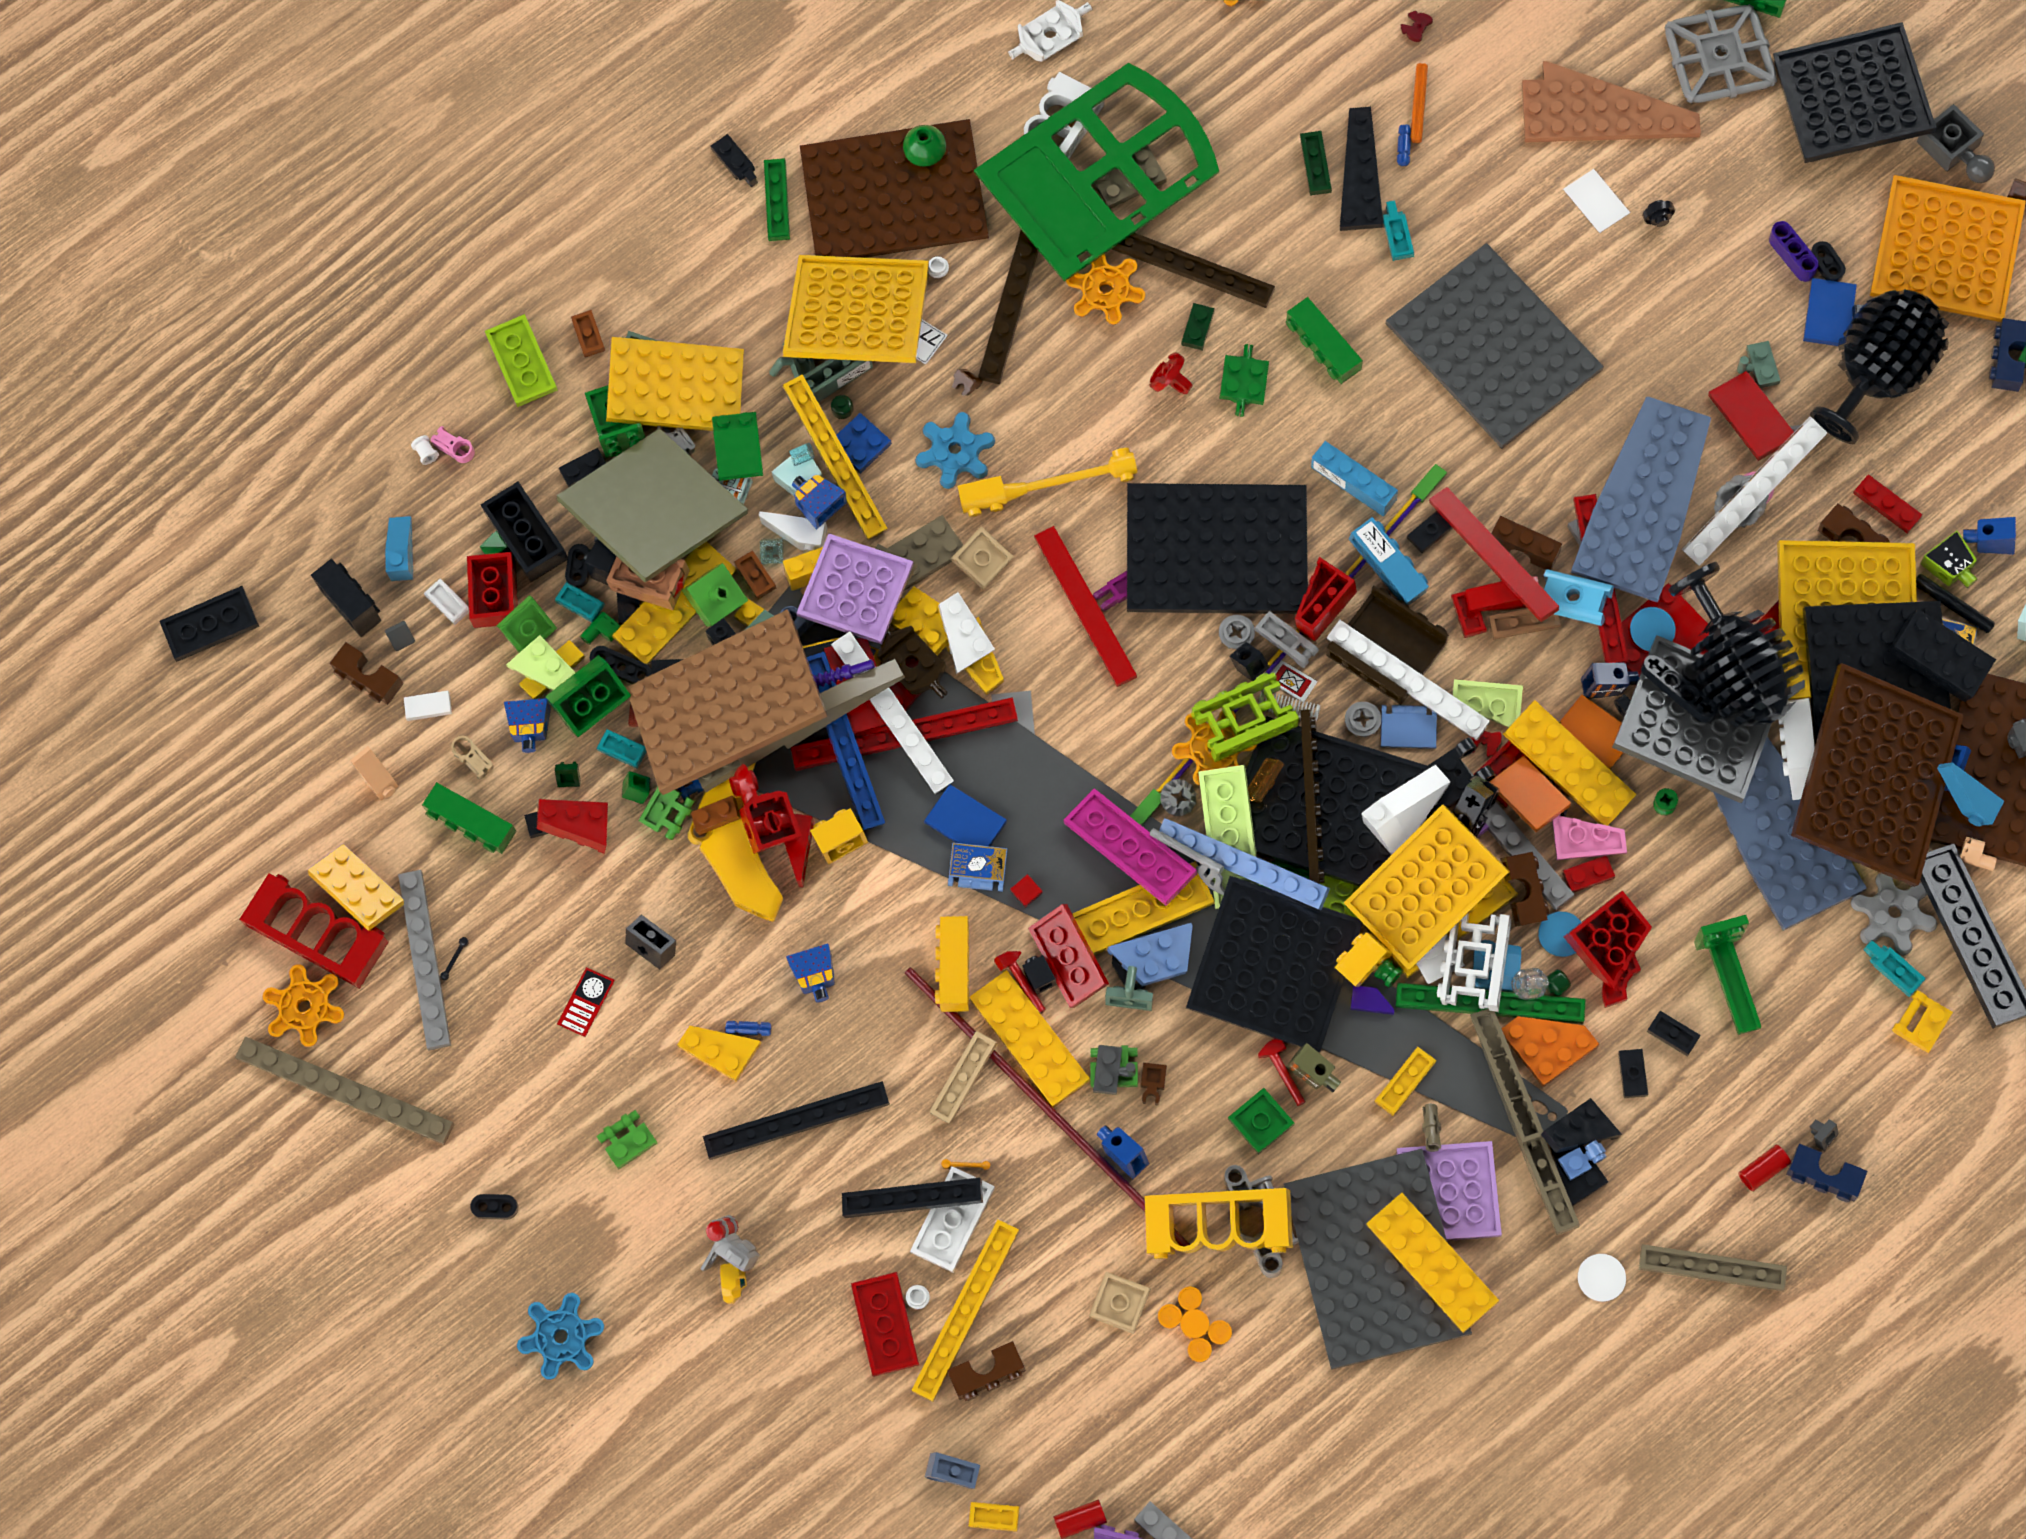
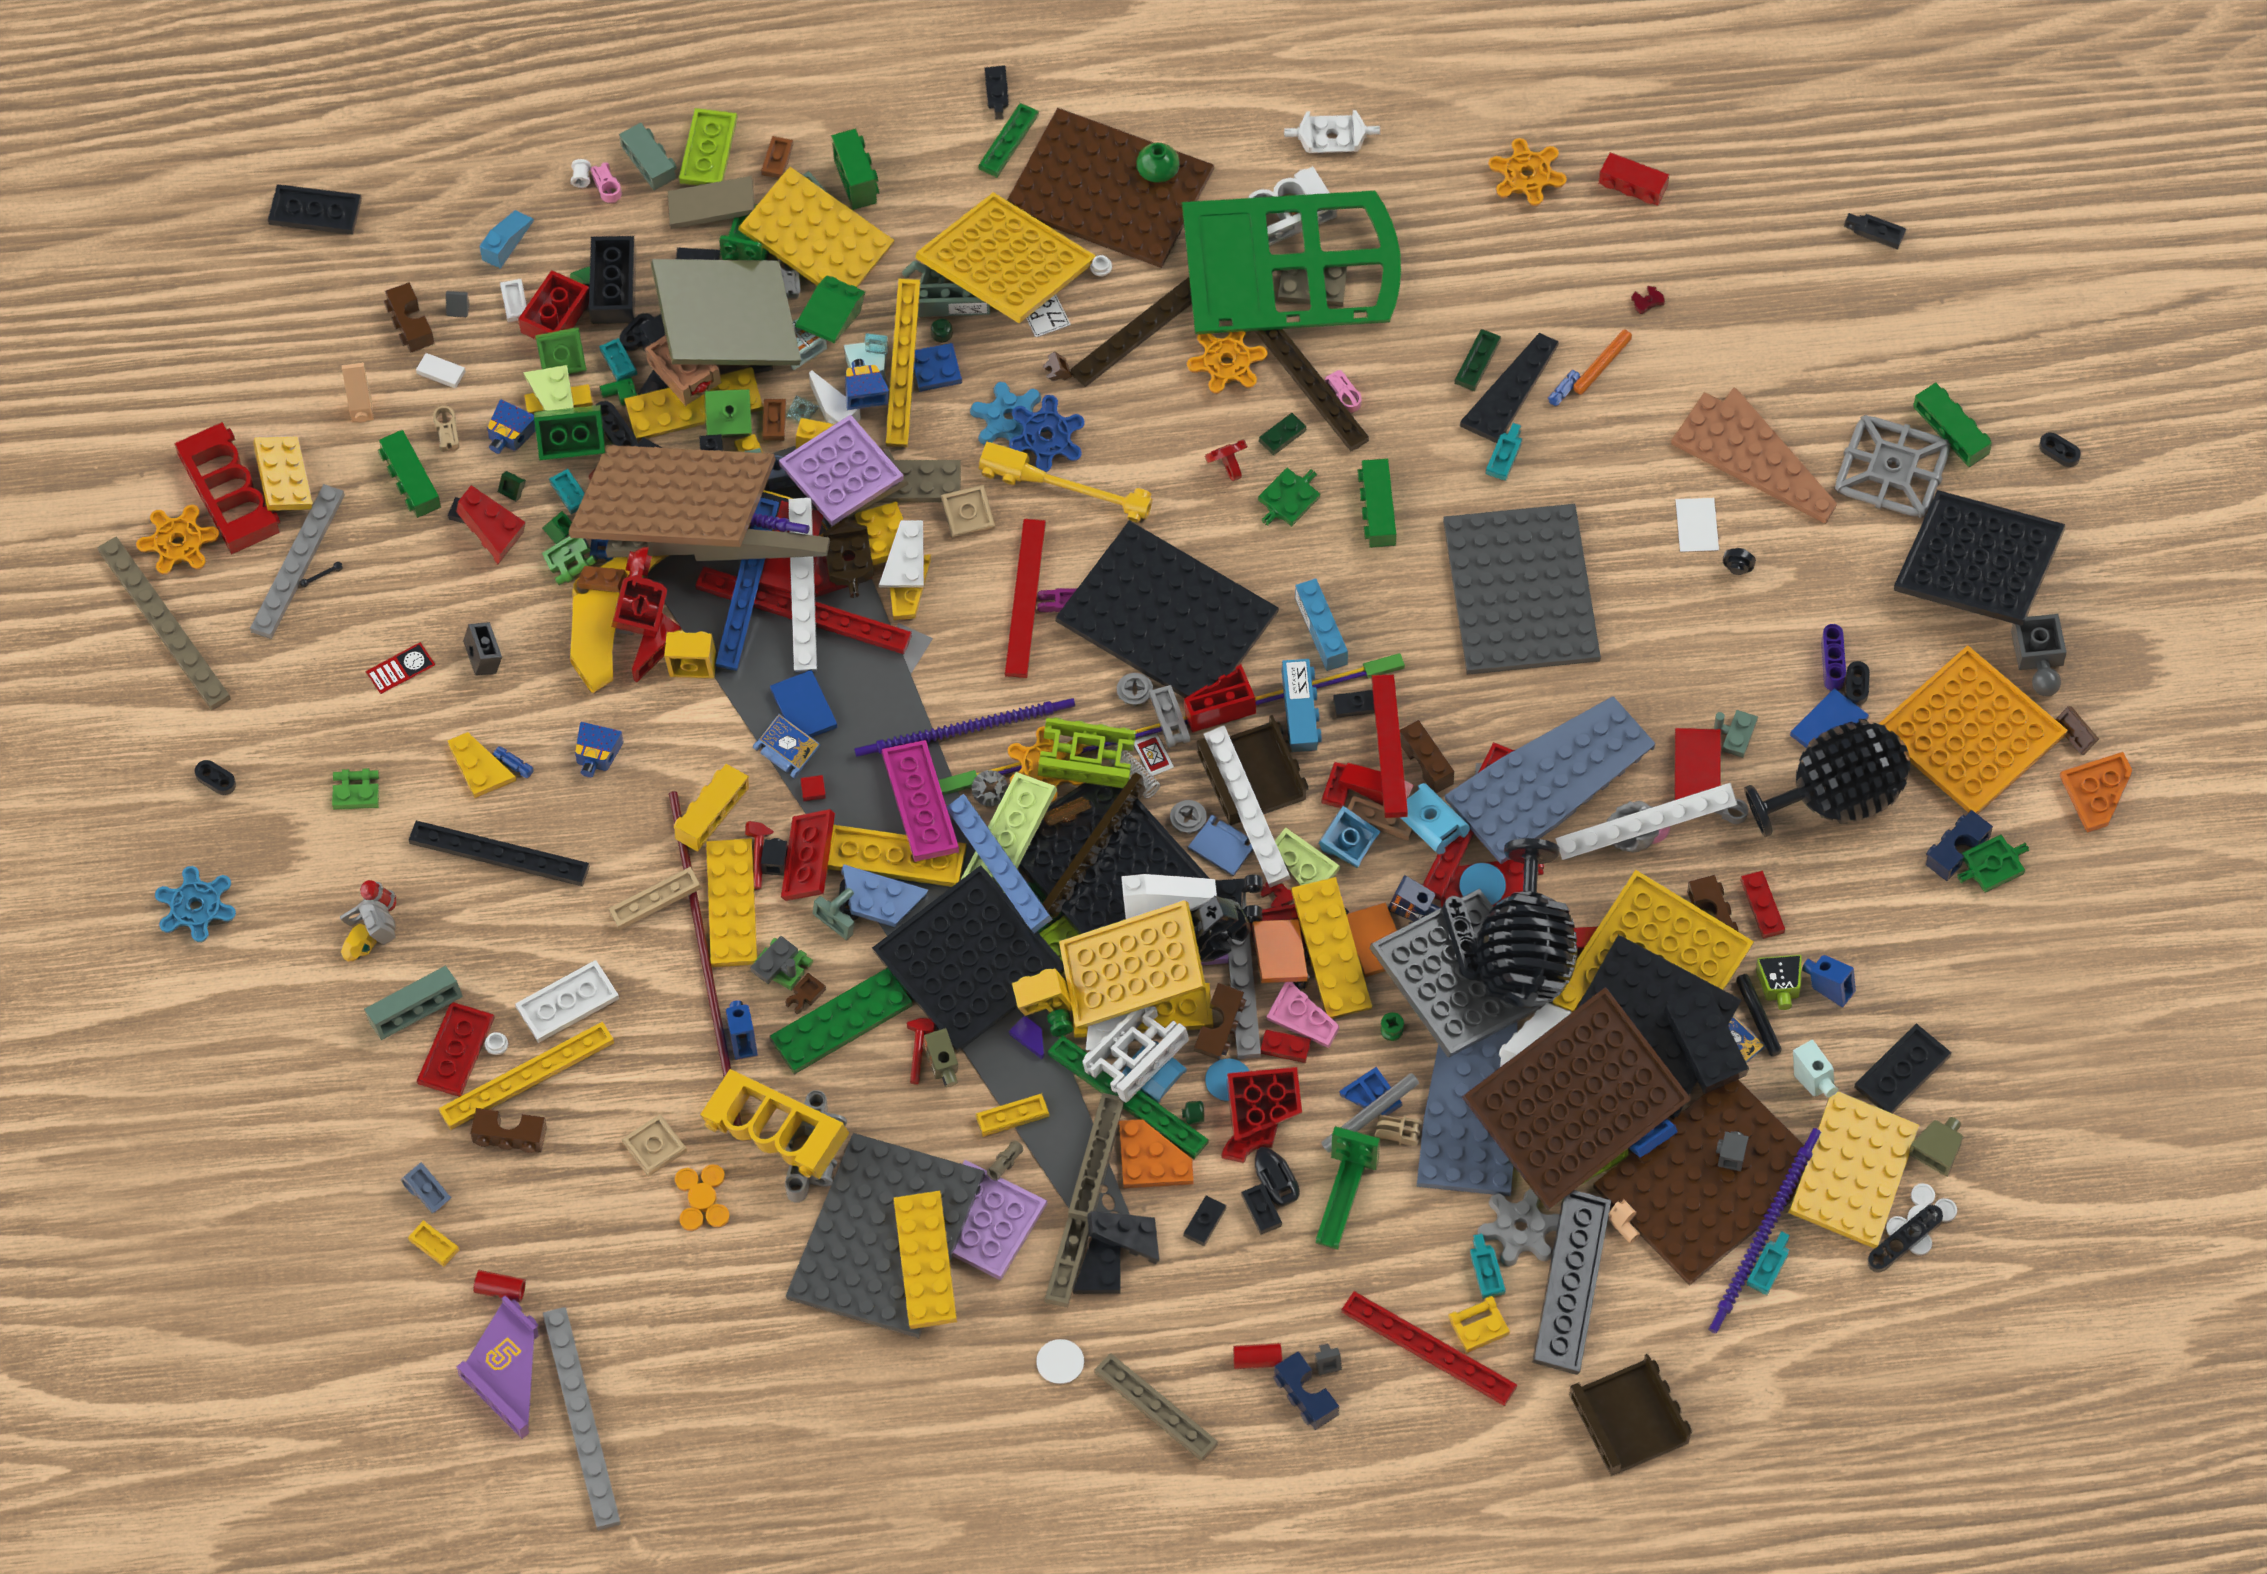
camera: 25 degrees right, 10 degrees down
(347, 596) = (435, 248): black brick -> none
(473, 399) = (648, 156): none -> sand green brick
(560, 409) = (711, 202): none -> dark tan tile
(666, 304) = (855, 168): none -> green brick
(820, 1306) = (413, 1002): none -> sand green brick
(912, 1197) = (546, 963): black plate -> none
(946, 1164) = (624, 977): light orange hinge -> none
(1008, 434) = (1051, 420): none -> blue plate
(1175, 694) = (1047, 708): none -> dark purple hose
(1199, 1087) = (841, 1020): none -> green plate
(1215, 868) = (970, 845): light grey piece -> none
(1219, 254) = (1343, 388): none -> bright pink piece
(1249, 661) = (1126, 714): black brick -> none
(1261, 1121) = (870, 1074): green plate -> none
(1511, 655) = (1348, 837): none -> dark azure slope
(1529, 983) = (1168, 1096): clear head -> none
(1577, 1163) = (1102, 1256): medium blue plate -> none
(1663, 996) = (1276, 1176): none -> black piece
(1692, 871) = (1368, 1089): none -> blue wing
(1705, 891) = (1376, 1107): none -> light grey axle
(1736, 889) = (1394, 1128): none -> tan arm
(1896, 1069) = (1429, 1348): none -> red tile
(1971, 796) = (1648, 1168): dark azure slope -> none

